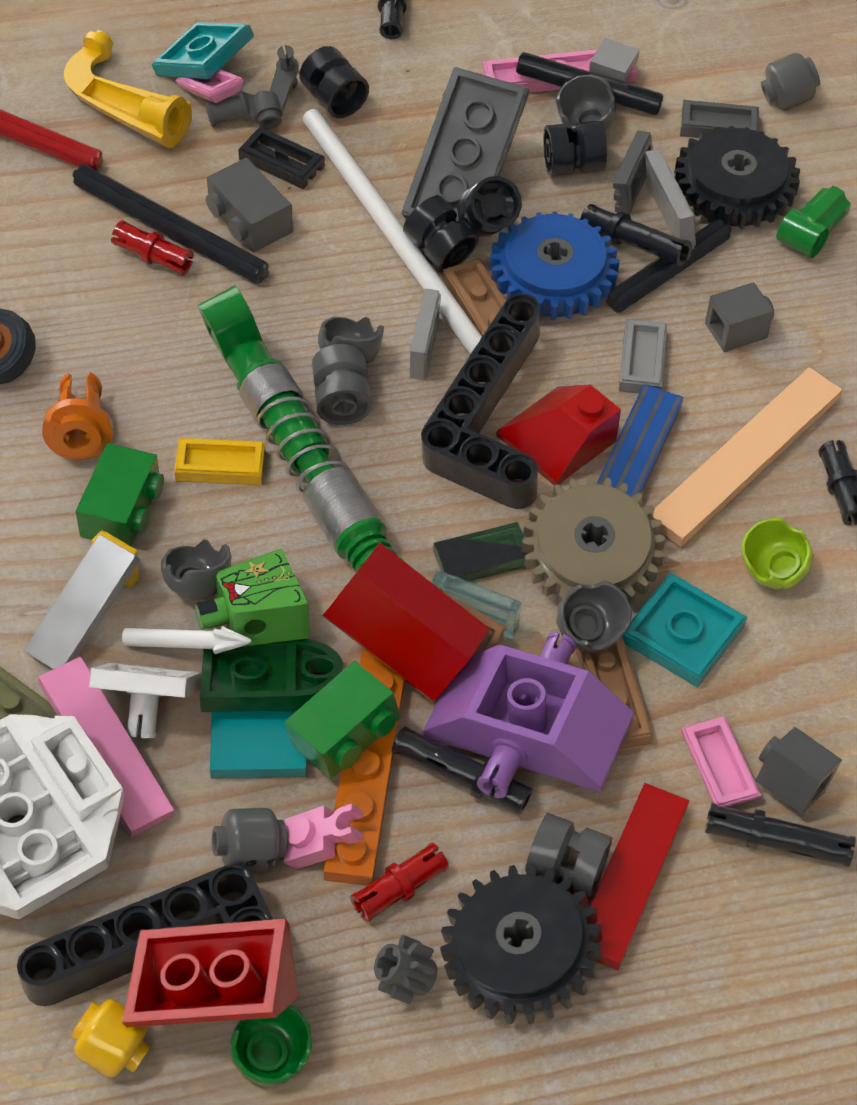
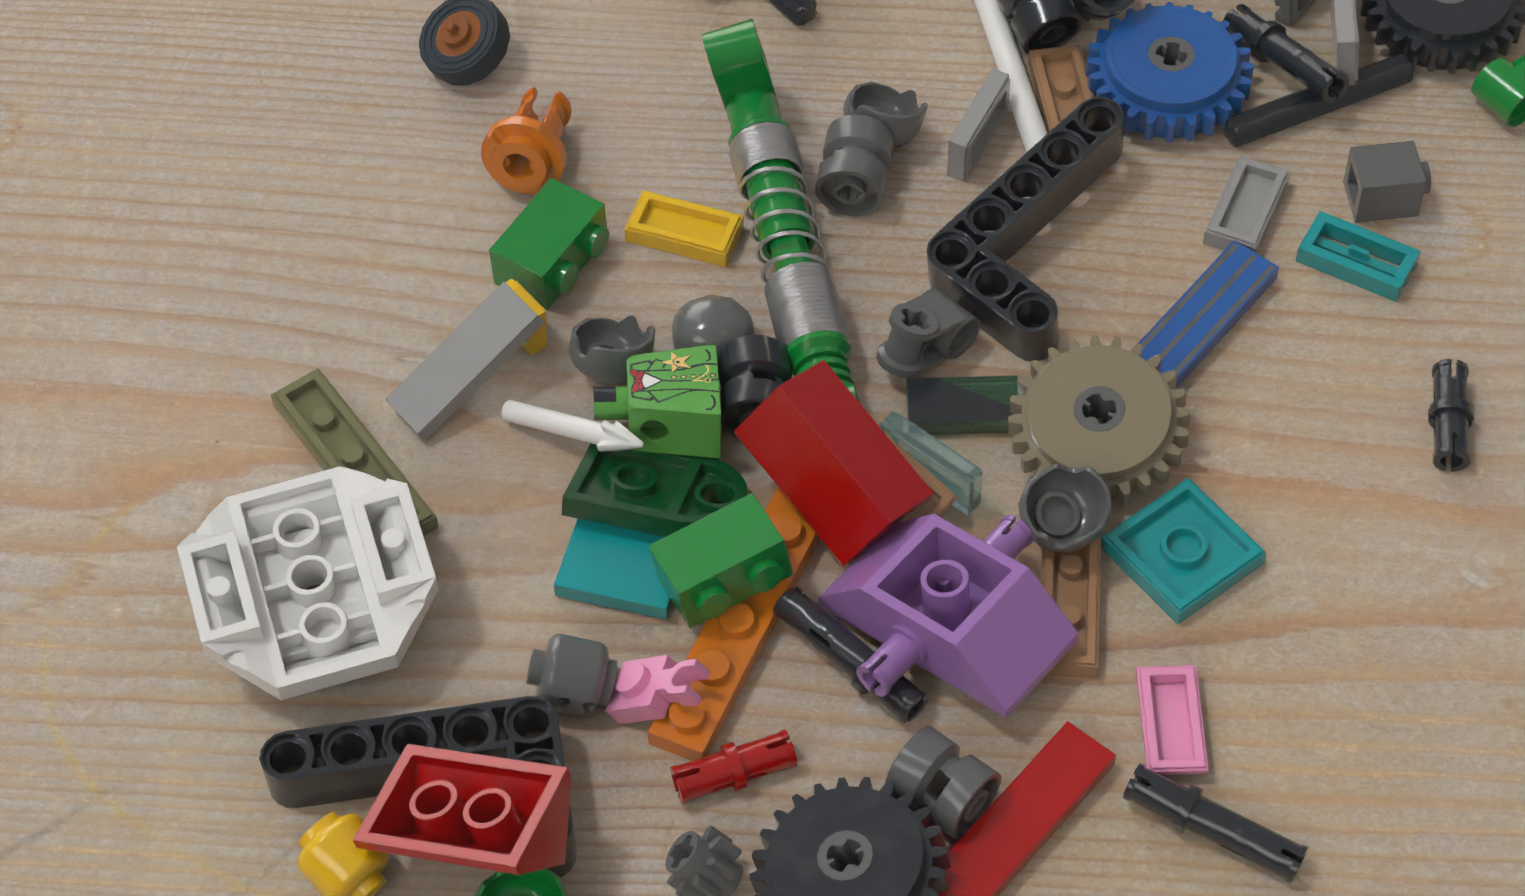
camera: 20 degrees right, 0 degrees up
(70, 695) = (427, 466): bright pink tile -> none
(145, 687) = (505, 471): white tile -> none
(270, 531) = (710, 322): none -> dark grey hair
(319, 569) = (748, 374): none -> black wheel
(439, 505) = (926, 334): none -> dark grey piece
(564, 430) = (1112, 278): red slope -> none
(735, 383) = (1354, 263): none -> teal tile
(745, 456) = (1335, 356): light nougat tile -> none
(776, 554) = (1327, 482): lime hair -> none
(797, 769) = (1261, 749): dark grey brick -> none

